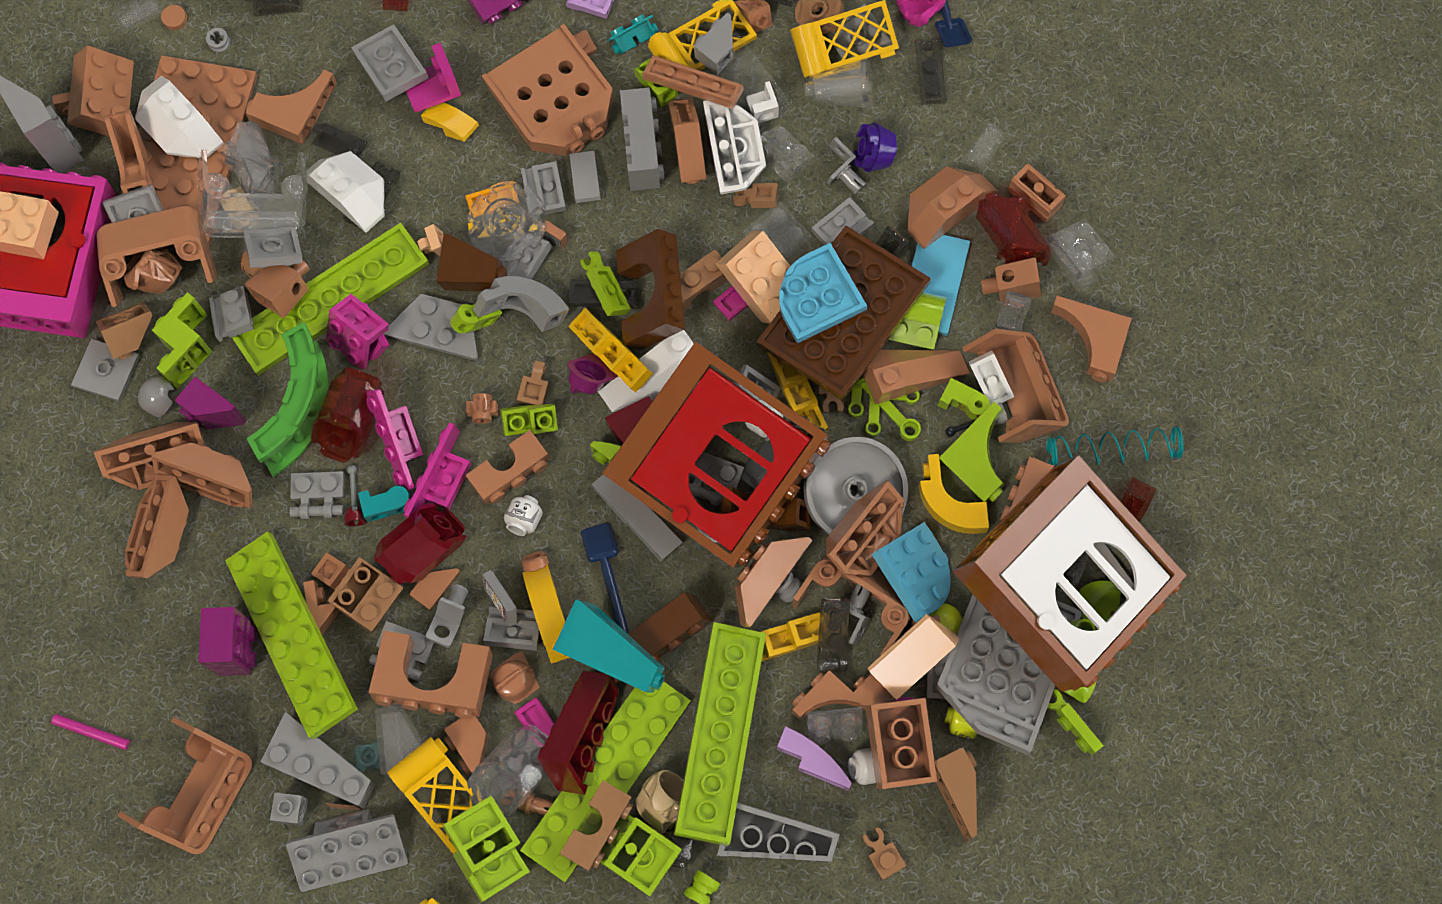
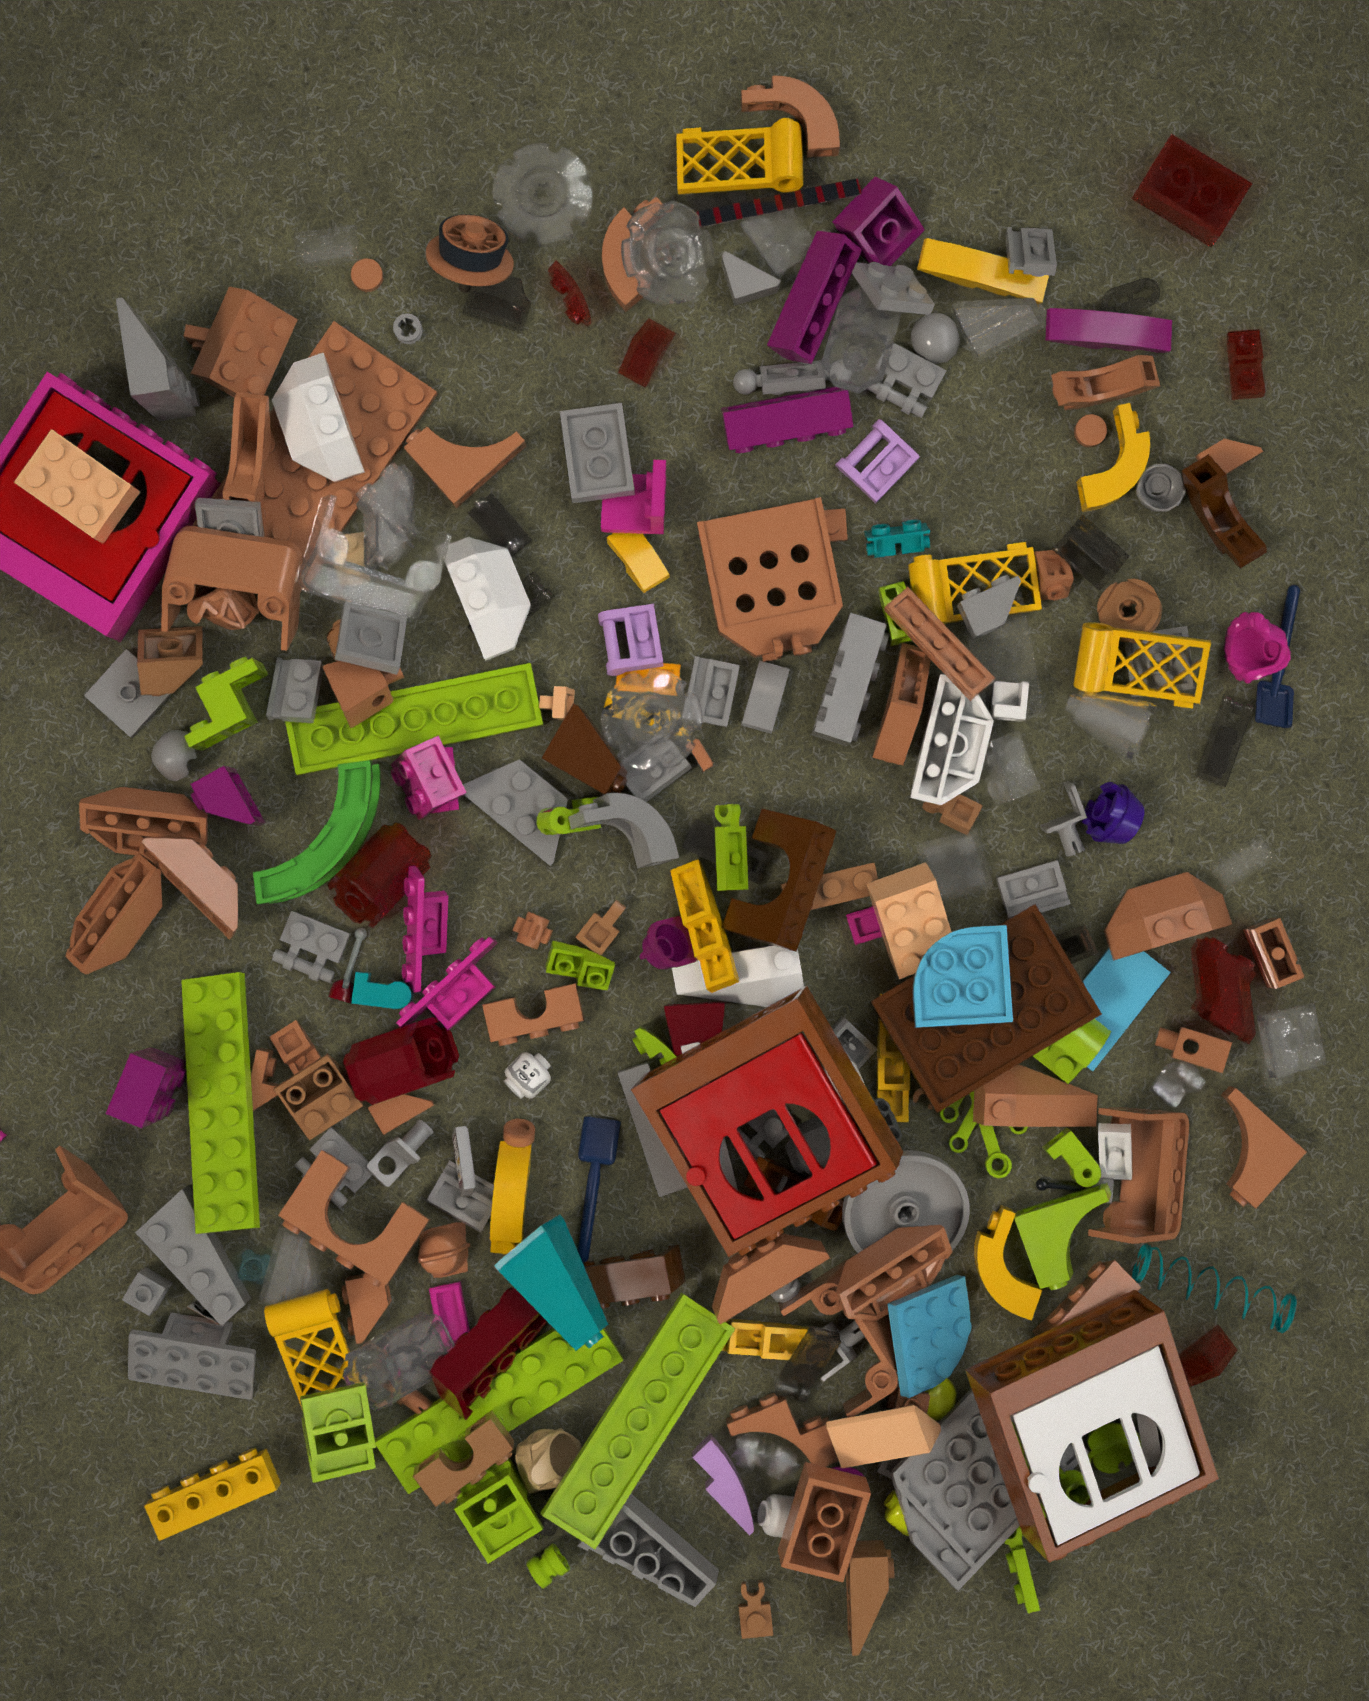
camera: 20 degrees right, 15 degrees up
(475, 172) = (641, 638): none -> lavender plate

